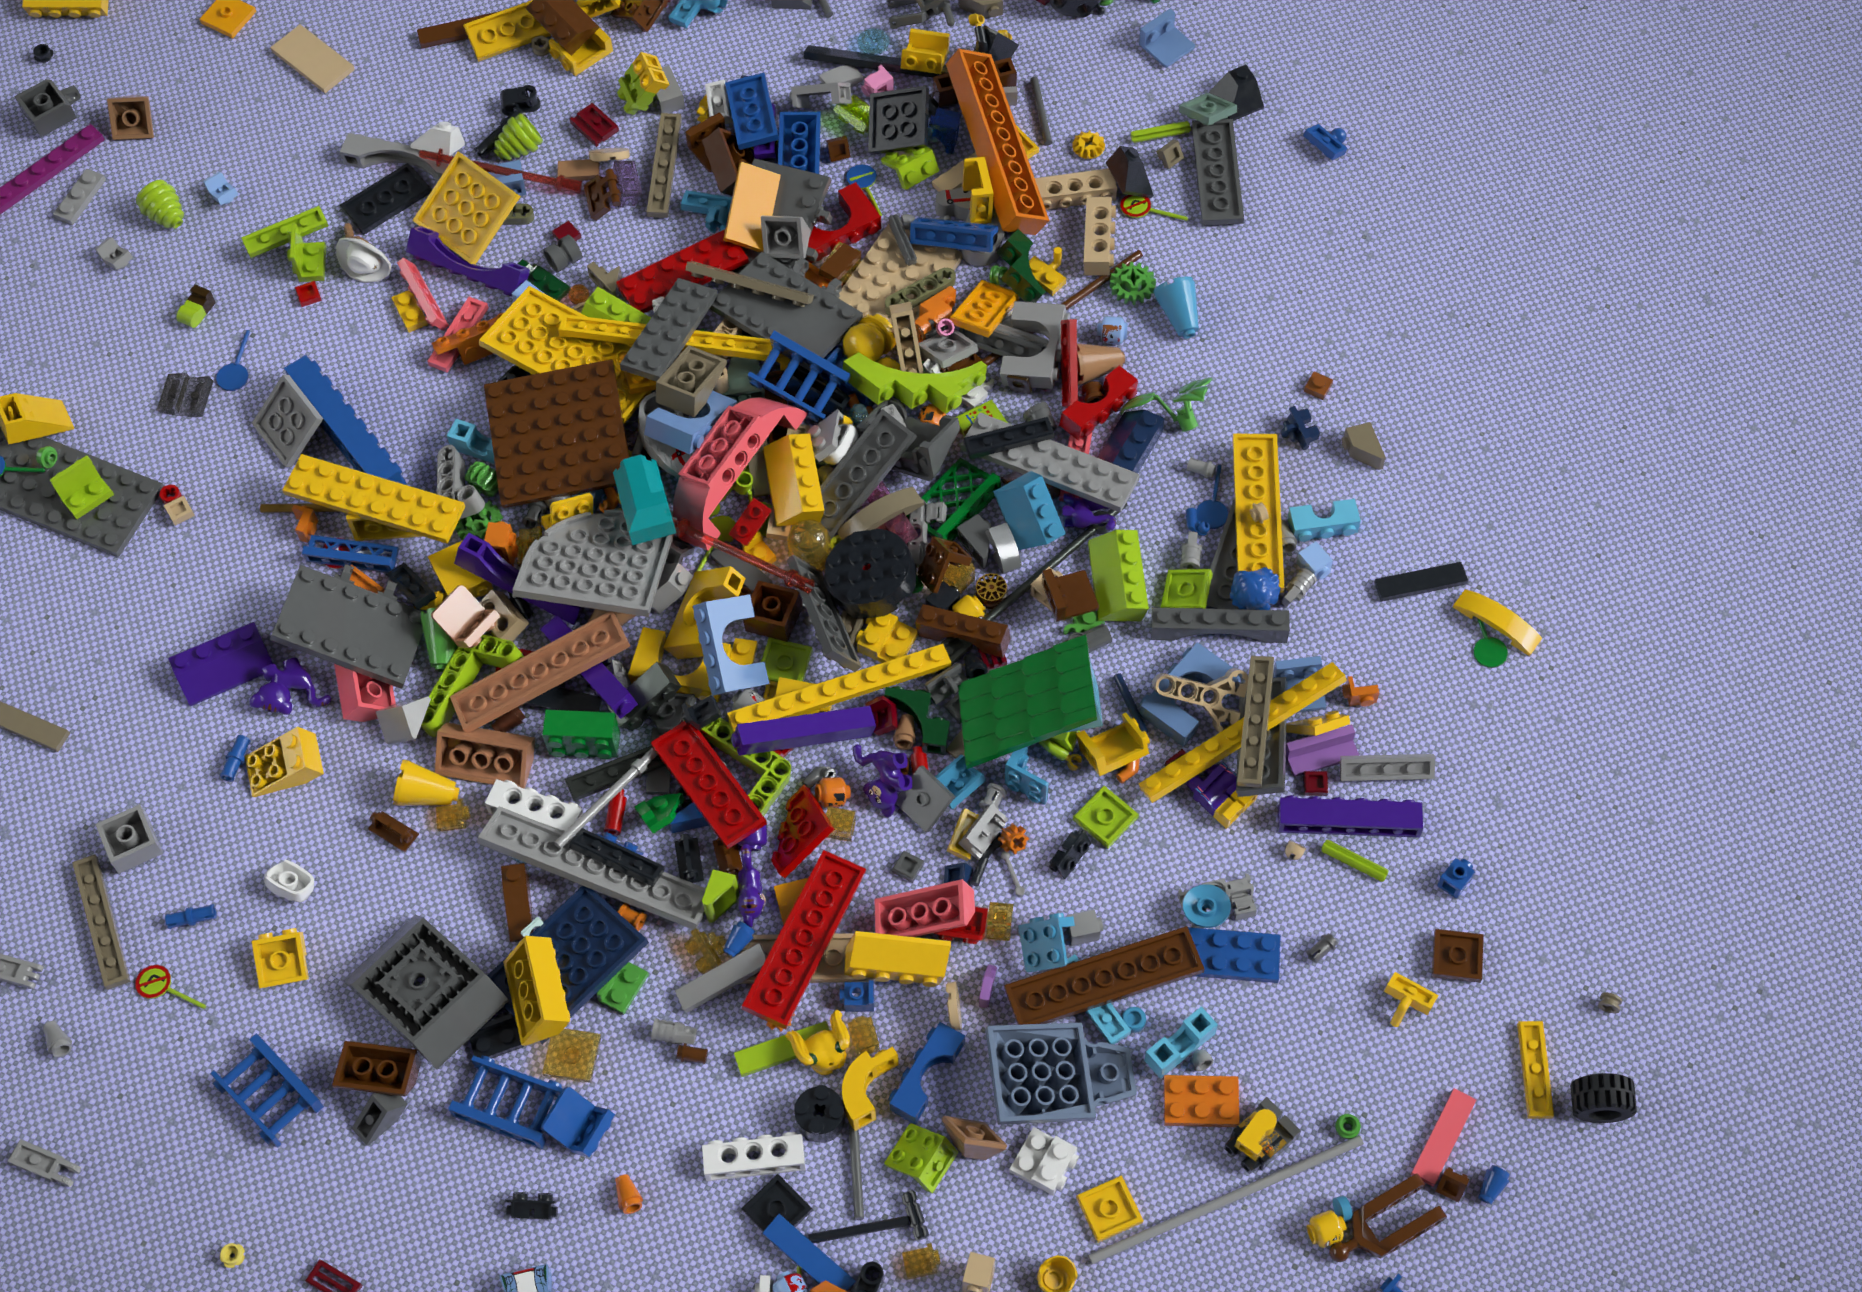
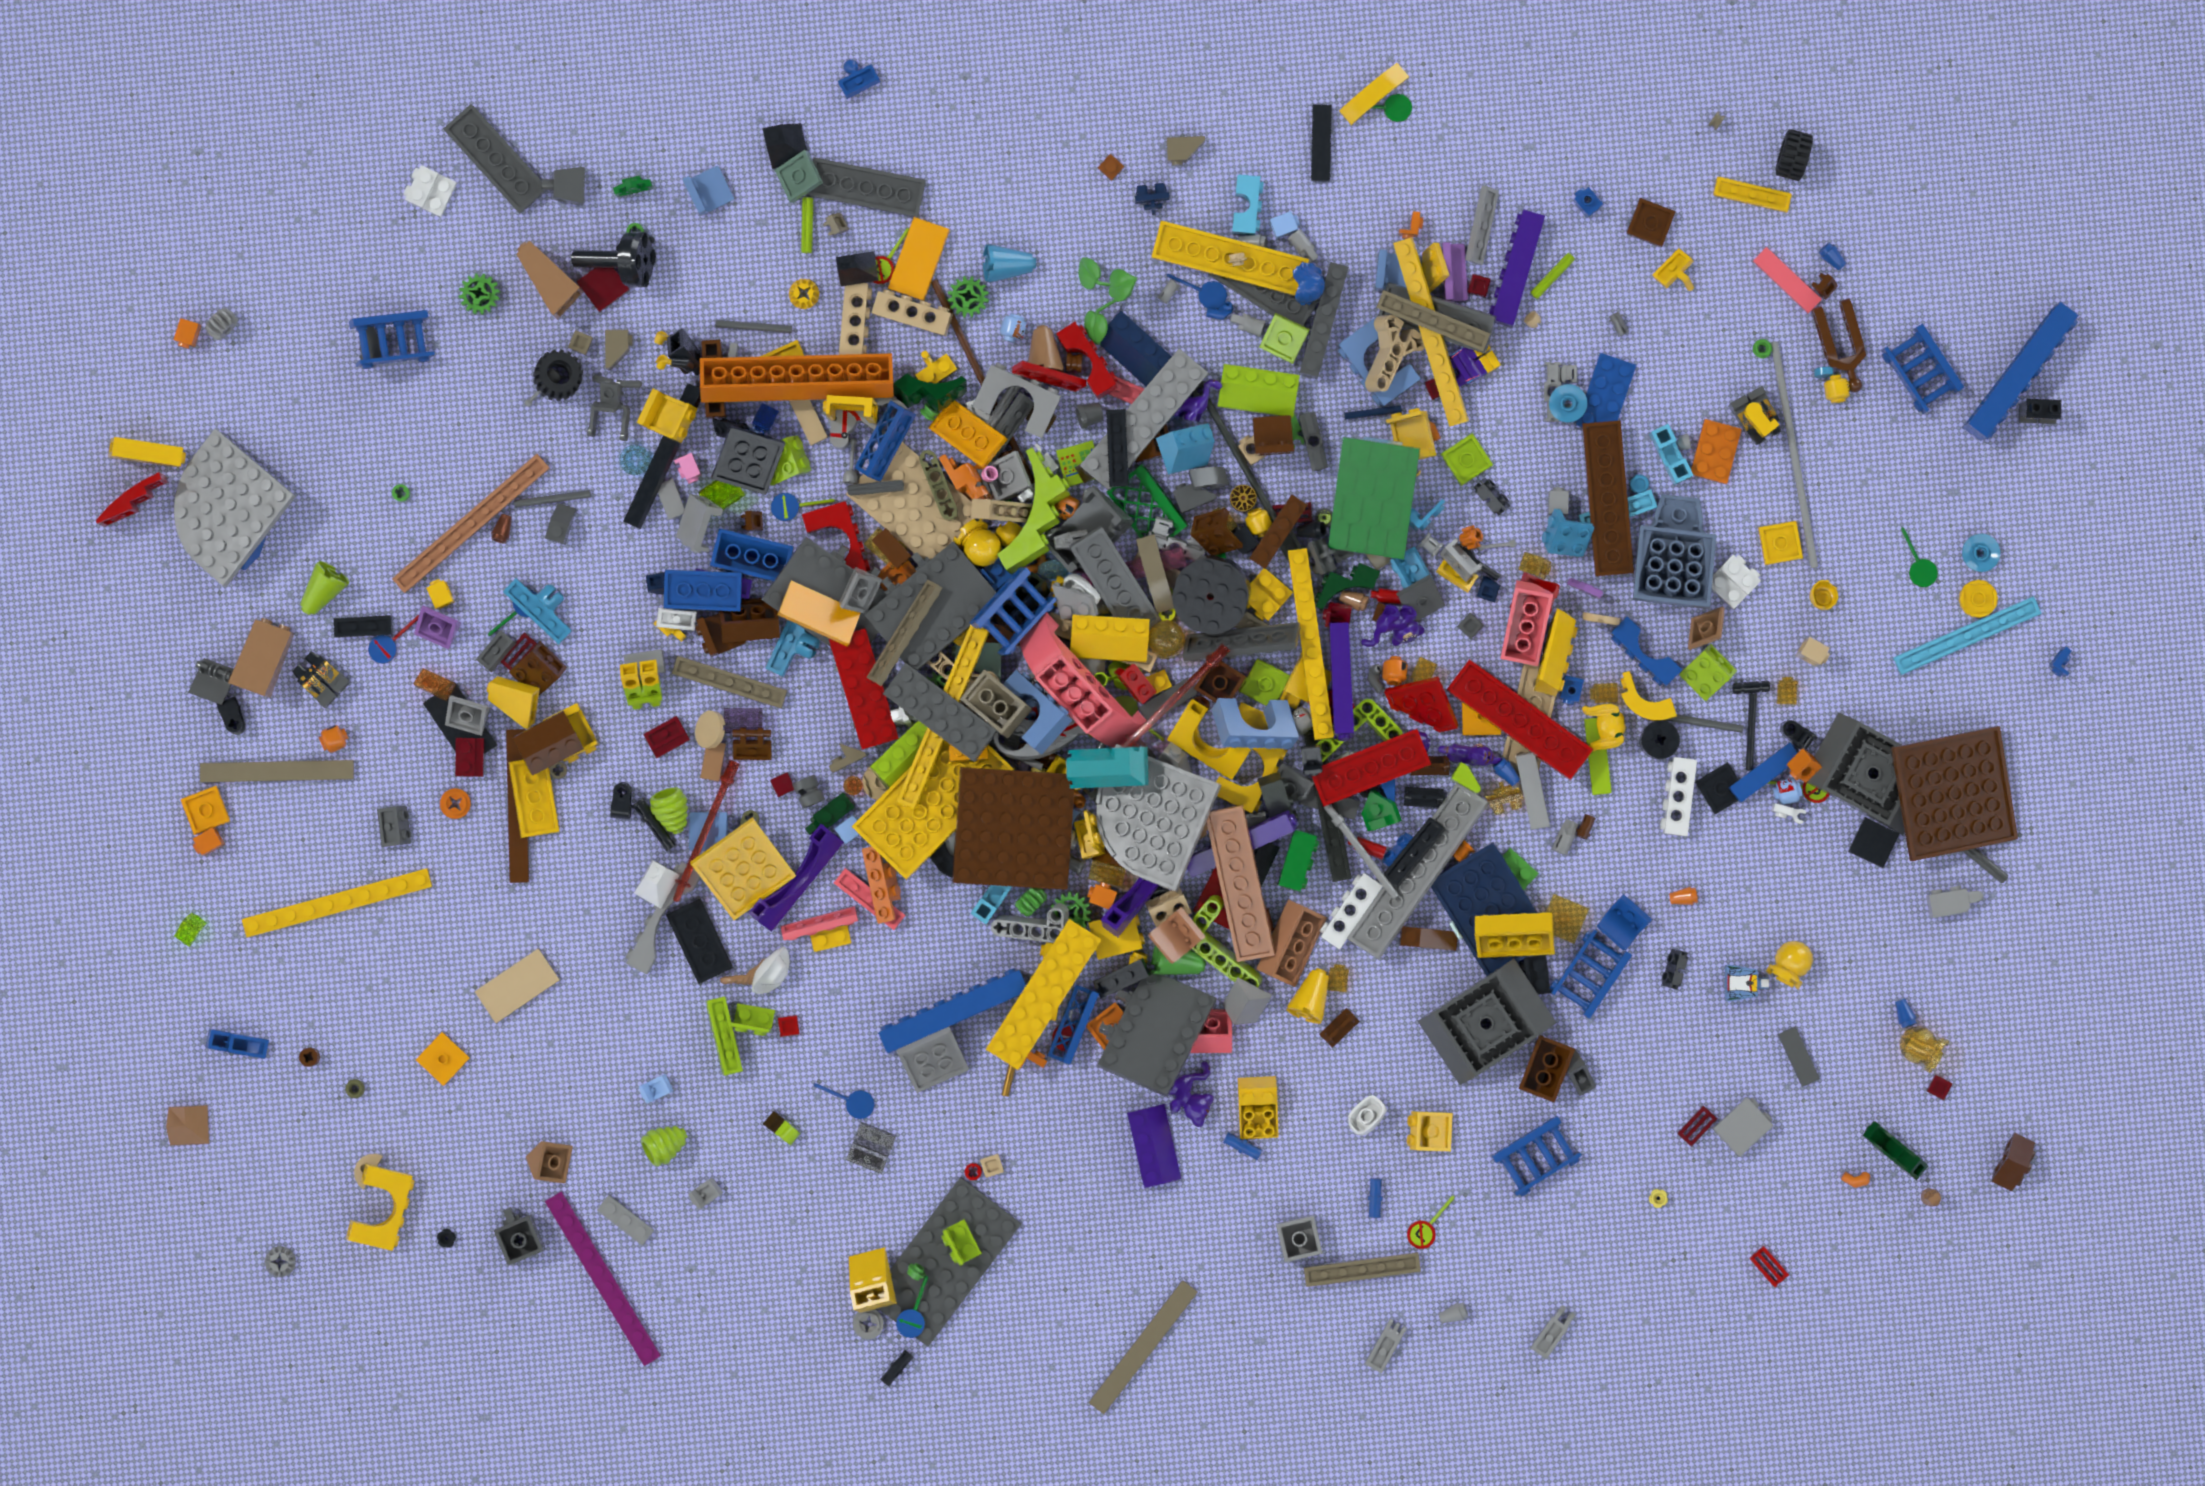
camera: 75 degrees left, 25 degrees up
(1158, 233) = (918, 259): none -> light orange tile

